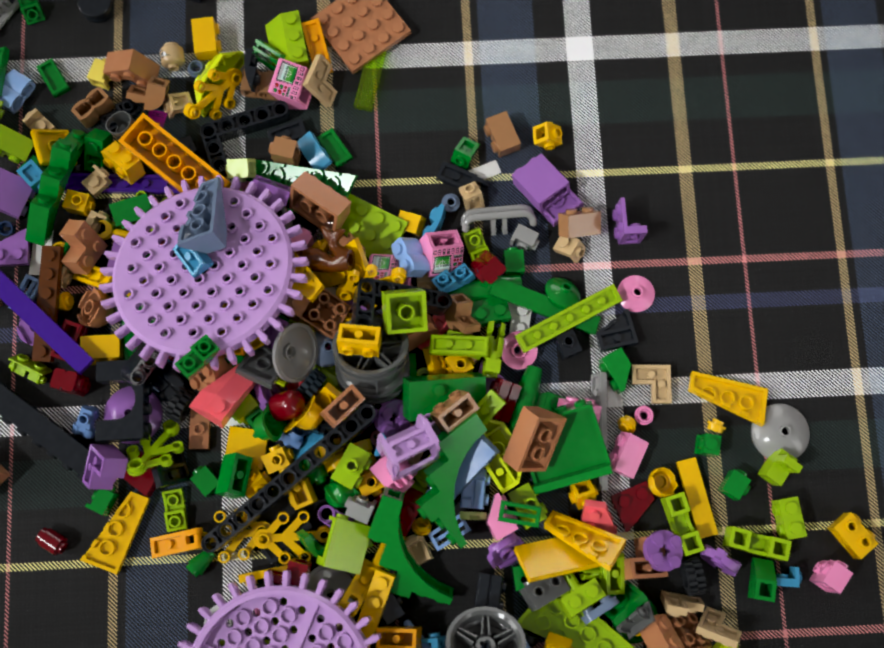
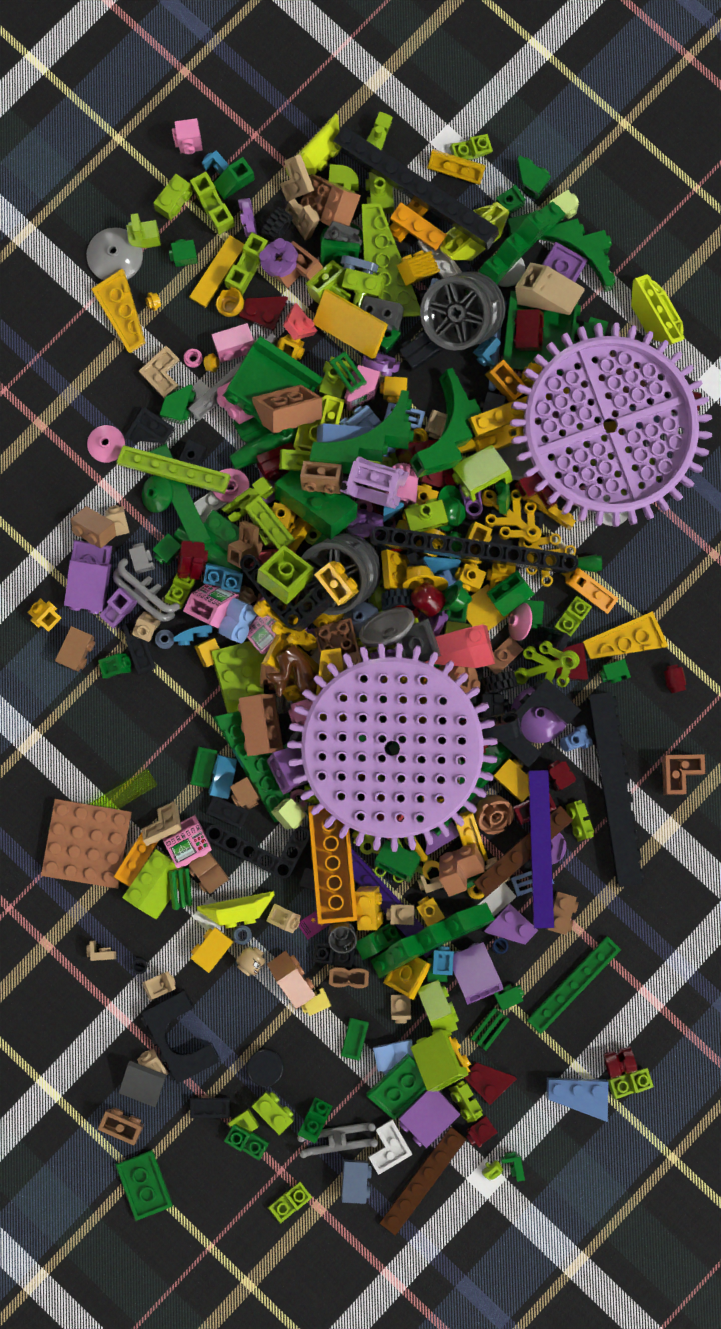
camera: 130 degrees left, 5 degrees up
(66, 301) = (508, 843): yellow plate -> none
(104, 466) = (591, 686): medium lavender brick -> none
(152, 96) = (297, 941): medium nougat brick -> none
(194, 261) = (390, 760): dark azure slope -> none
(200, 355) = (456, 677): green slope -> none
(206, 222) = (359, 773): sand blue wedge -> none
(206, 463) = (520, 622): none -> bright pink dish
(231, 78) = (251, 892): yellow plant -> none
(251, 71) = (209, 877): black slope -> none
(342, 406) = (392, 556): nougat brick -> none
(360, 508) = (447, 485): light grey brick -> none
(473, 515) = (381, 413): yellowish green tile -> none
(477, 543) = (392, 388): none -> yellow brick
(487, 170) = (113, 638): white sticker -> none
(504, 189) = (118, 607): none -> medium lavender brick
(589, 540) = (319, 311): yellow wing -> none
(622, 232) = (68, 493): medium lavender bracket -> none
(707, 445) = (173, 295): green brick -> none
(853, 535) = (143, 146): yellow brick -> none

